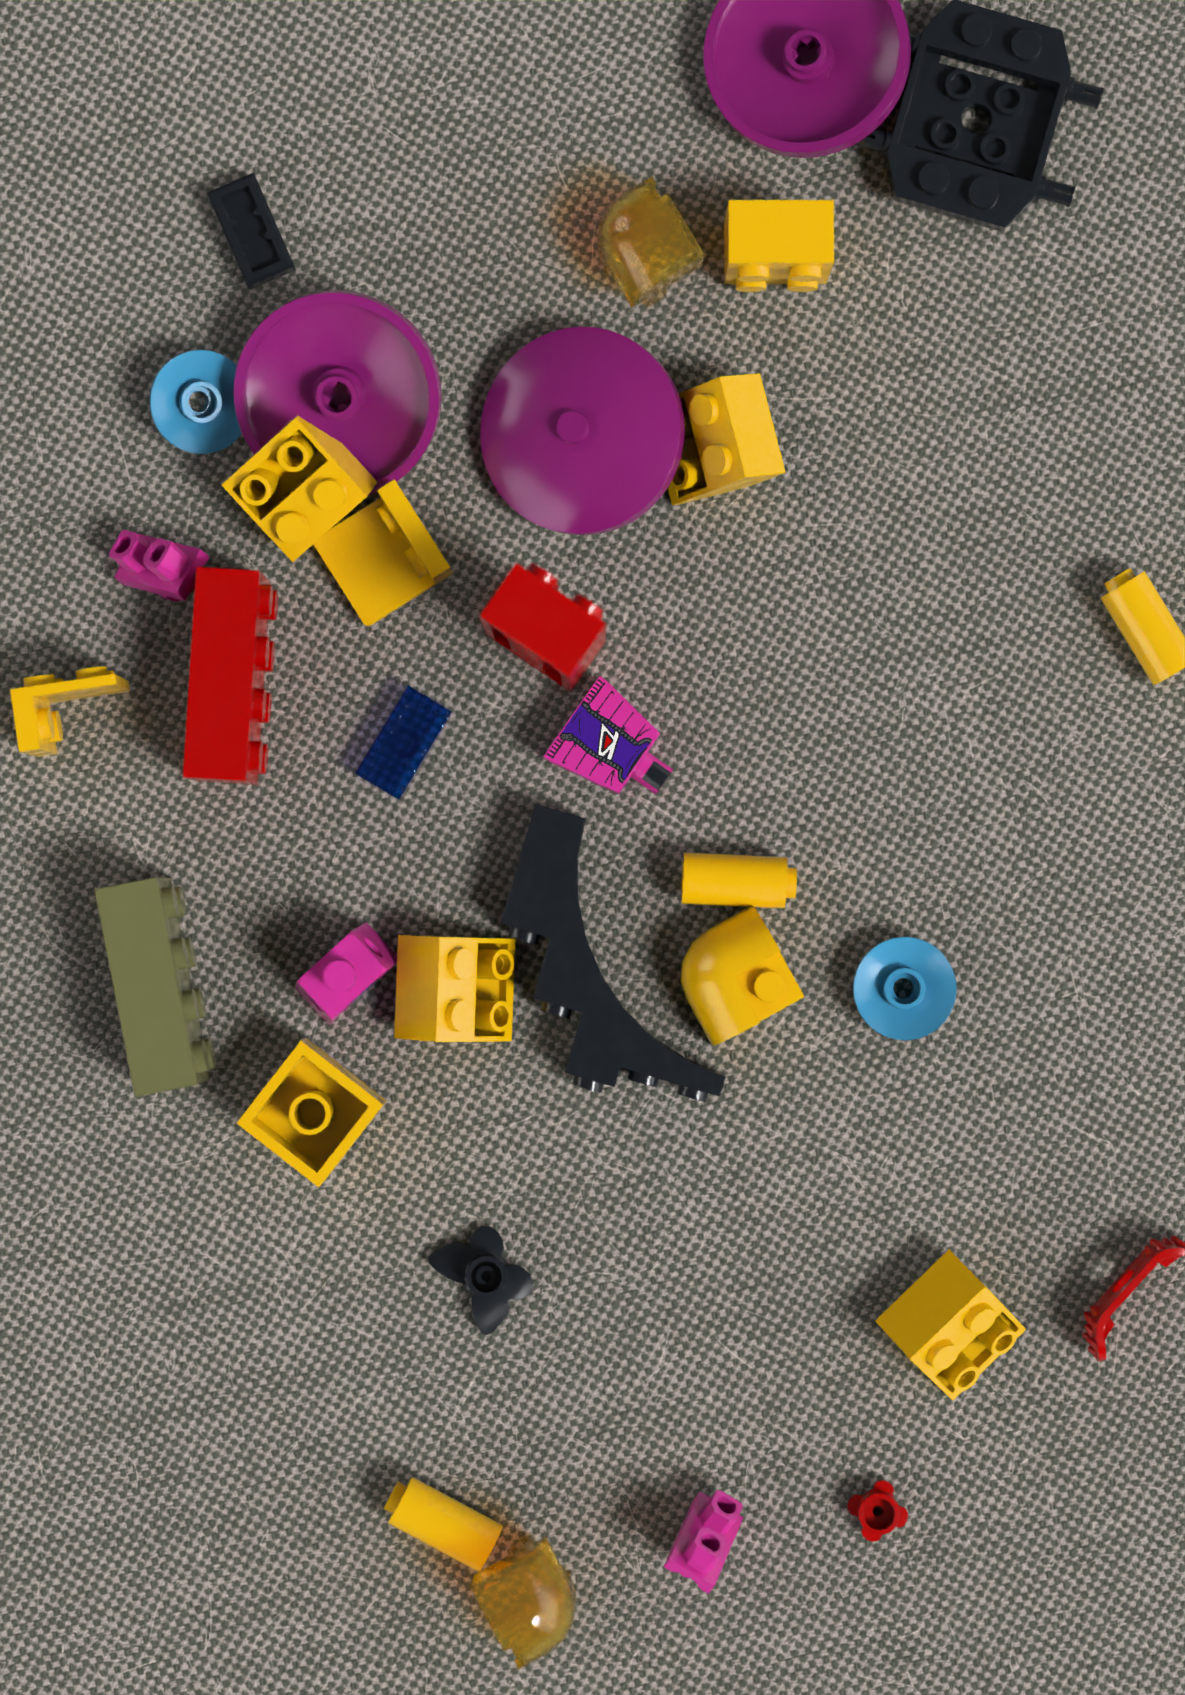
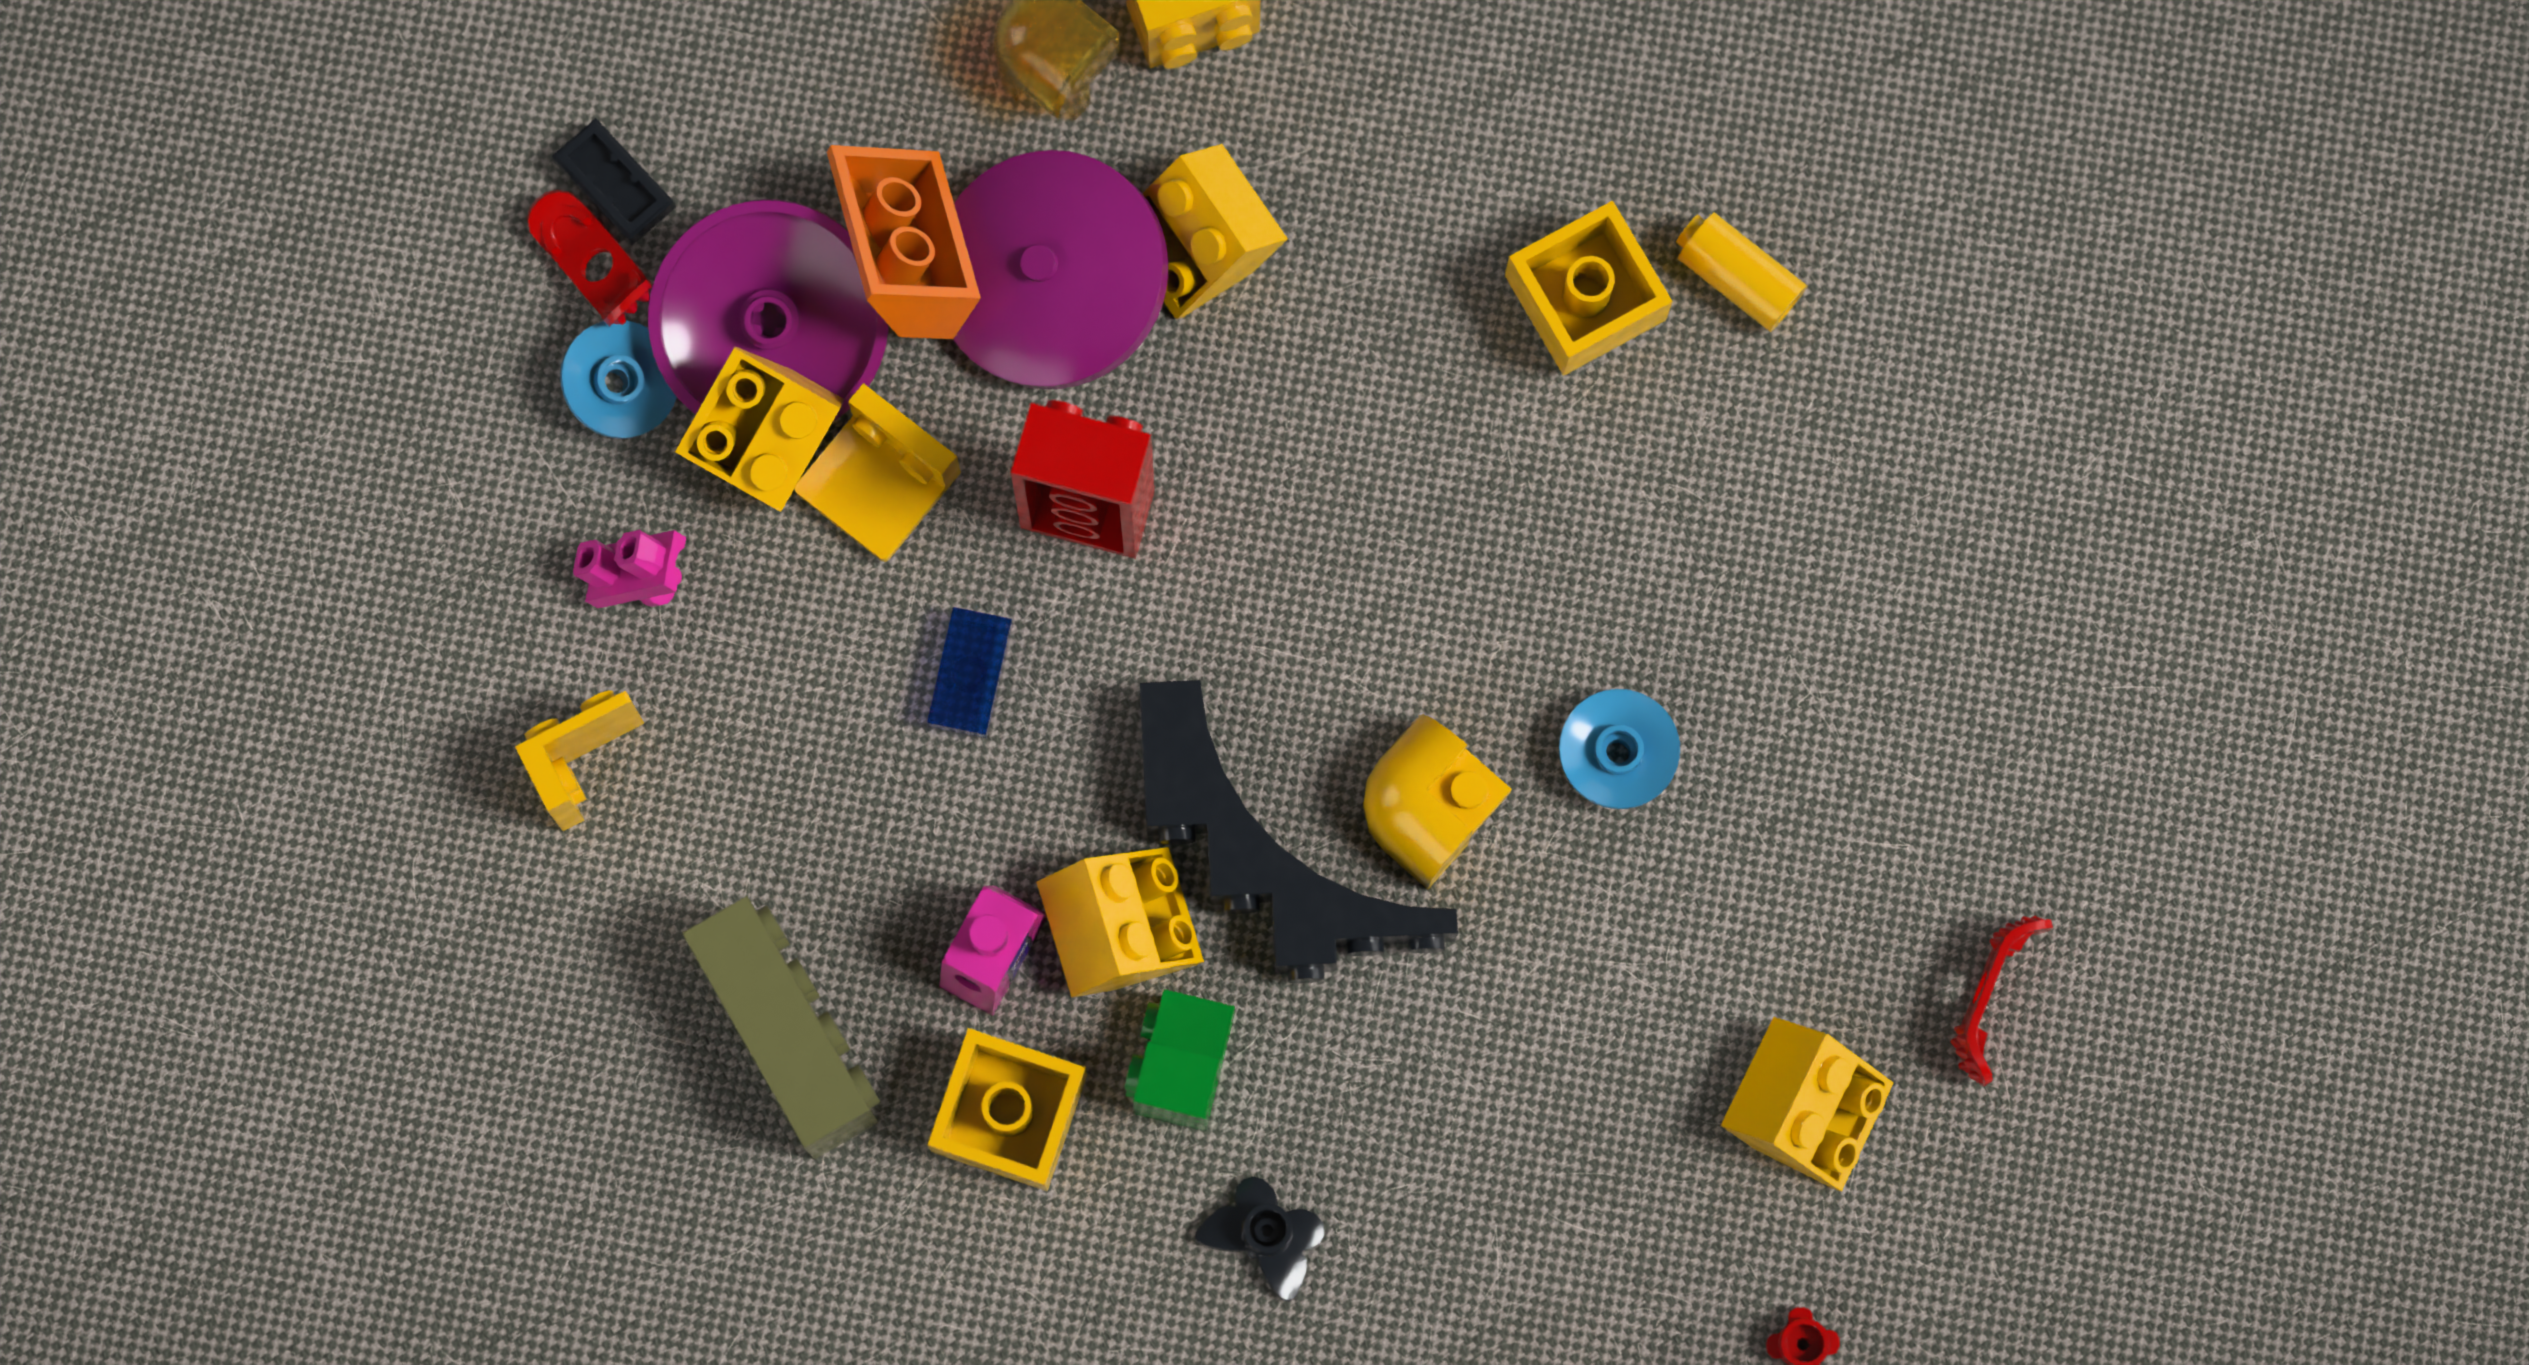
camera: 20 degrees left, 10 degrees down
(206, 267) = (572, 238): none -> red piece
(228, 676) = (749, 660): red brick -> none
(465, 1120) = (1181, 1061): none -> green brick
(469, 368) = (906, 238): none -> orange slope
(608, 743) = (1196, 594): torso -> none
(737, 880) = (1391, 695): yellow brick -> none
(1017, 599) = (1588, 288): none -> yellow brick

